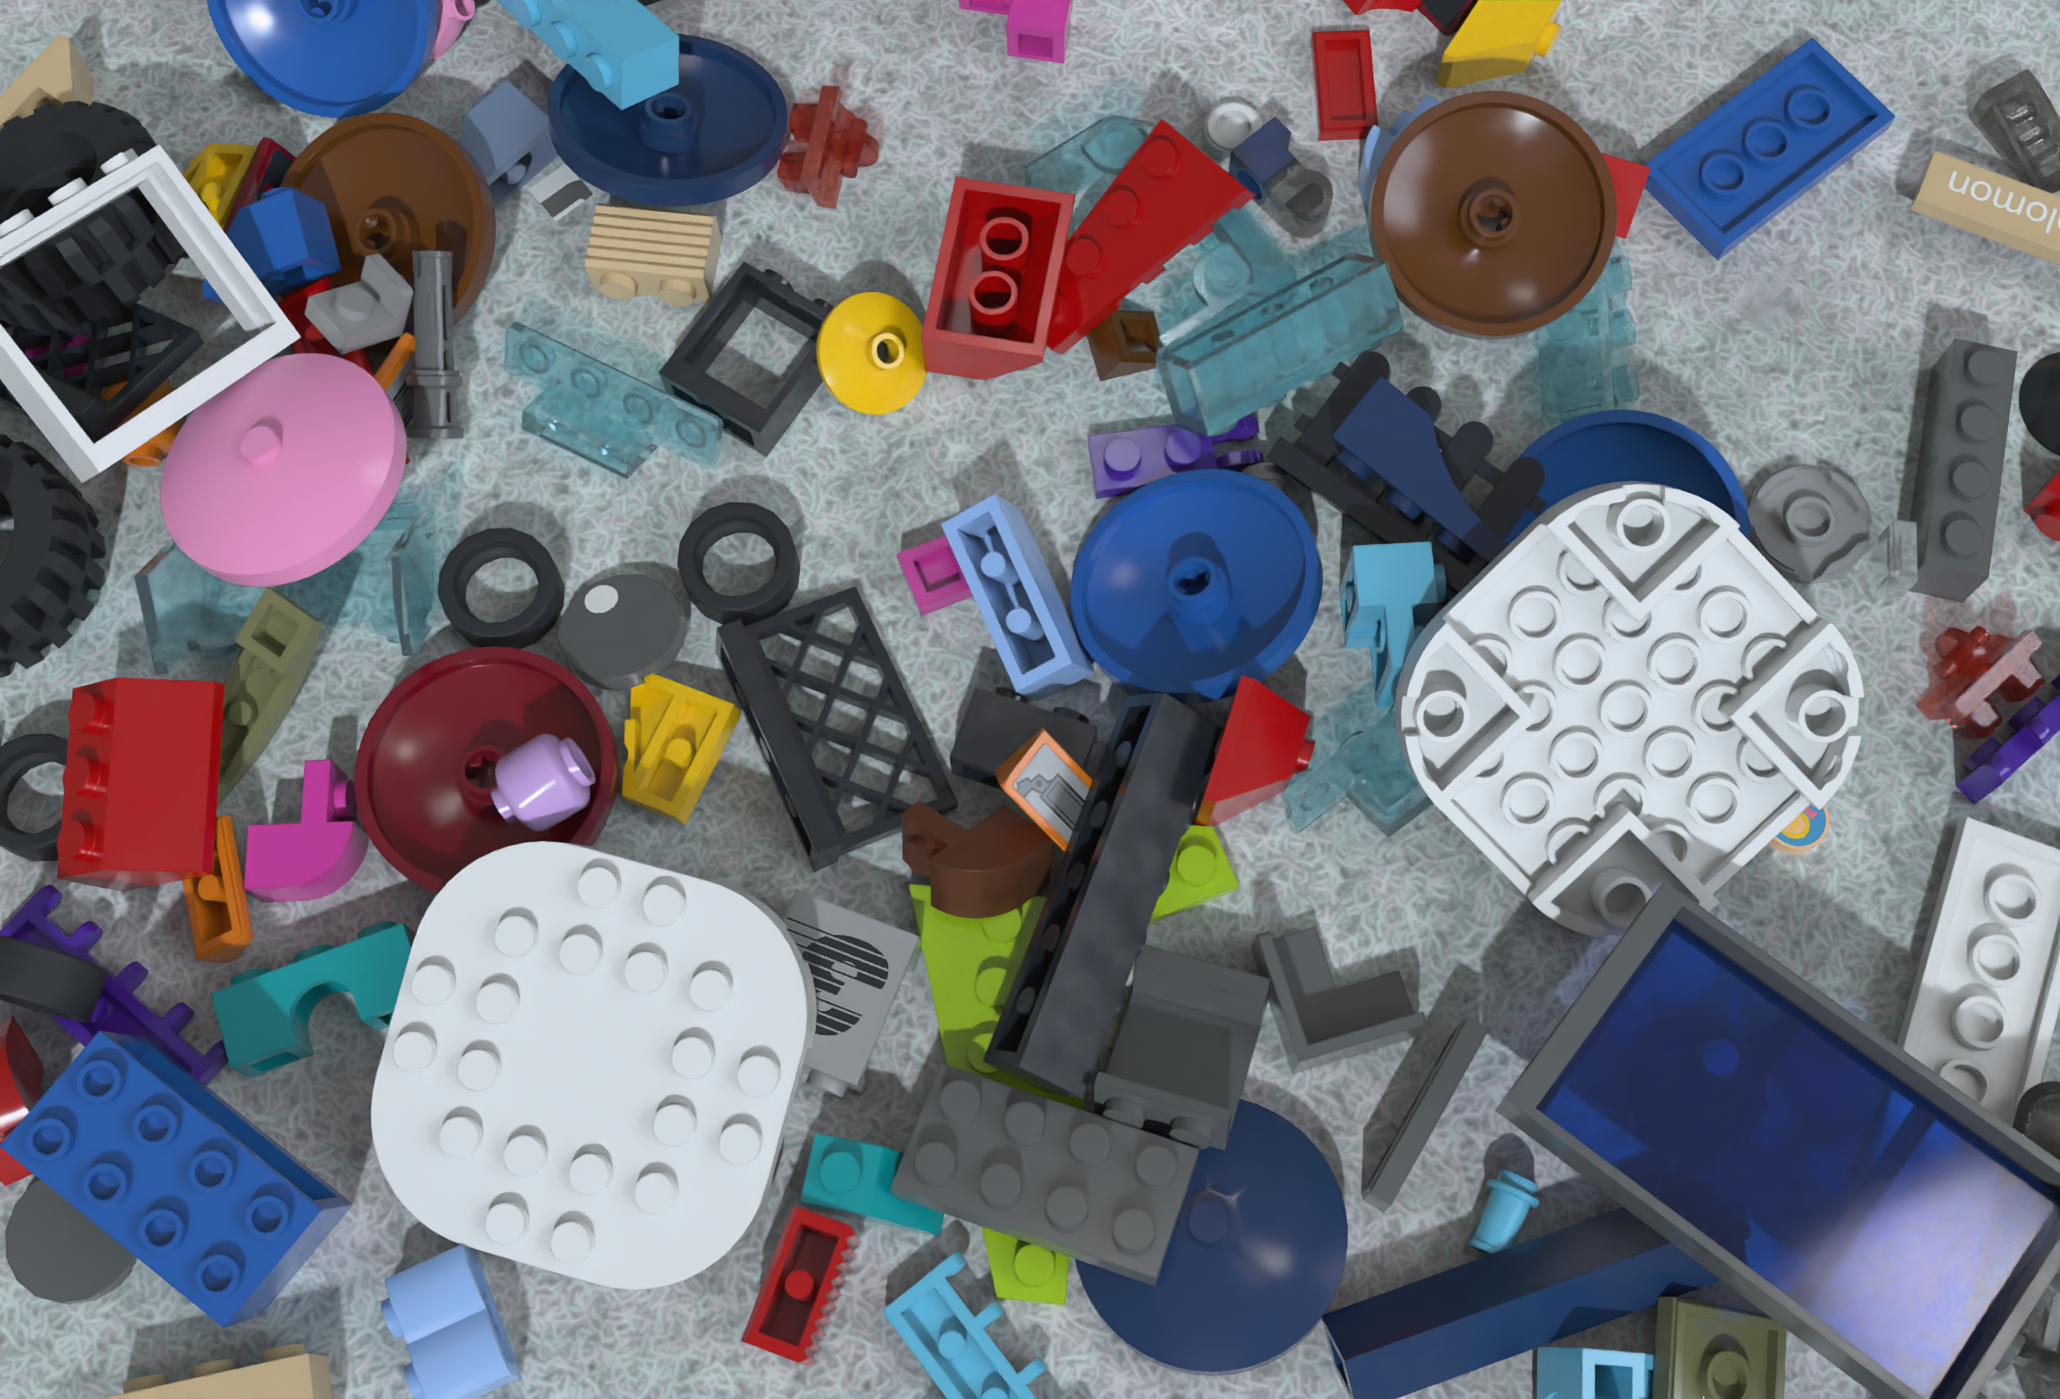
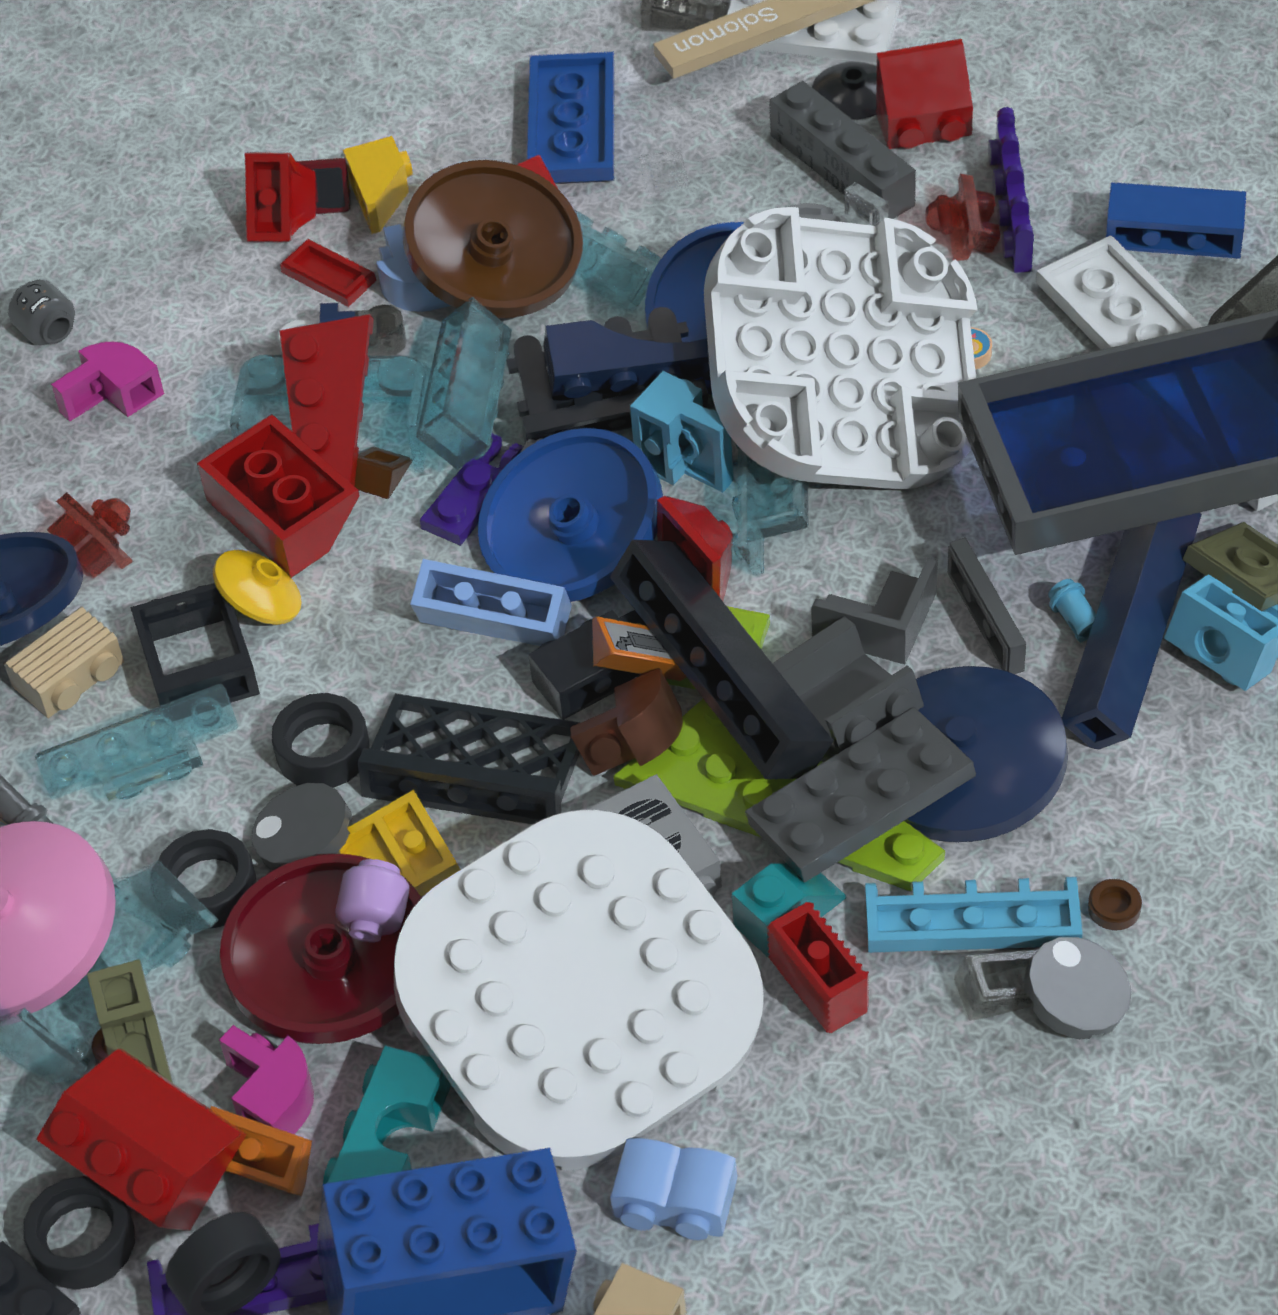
camera: 50 degrees left, 20 degrees down
(933, 575) = (431, 644): dark pink plate -> none

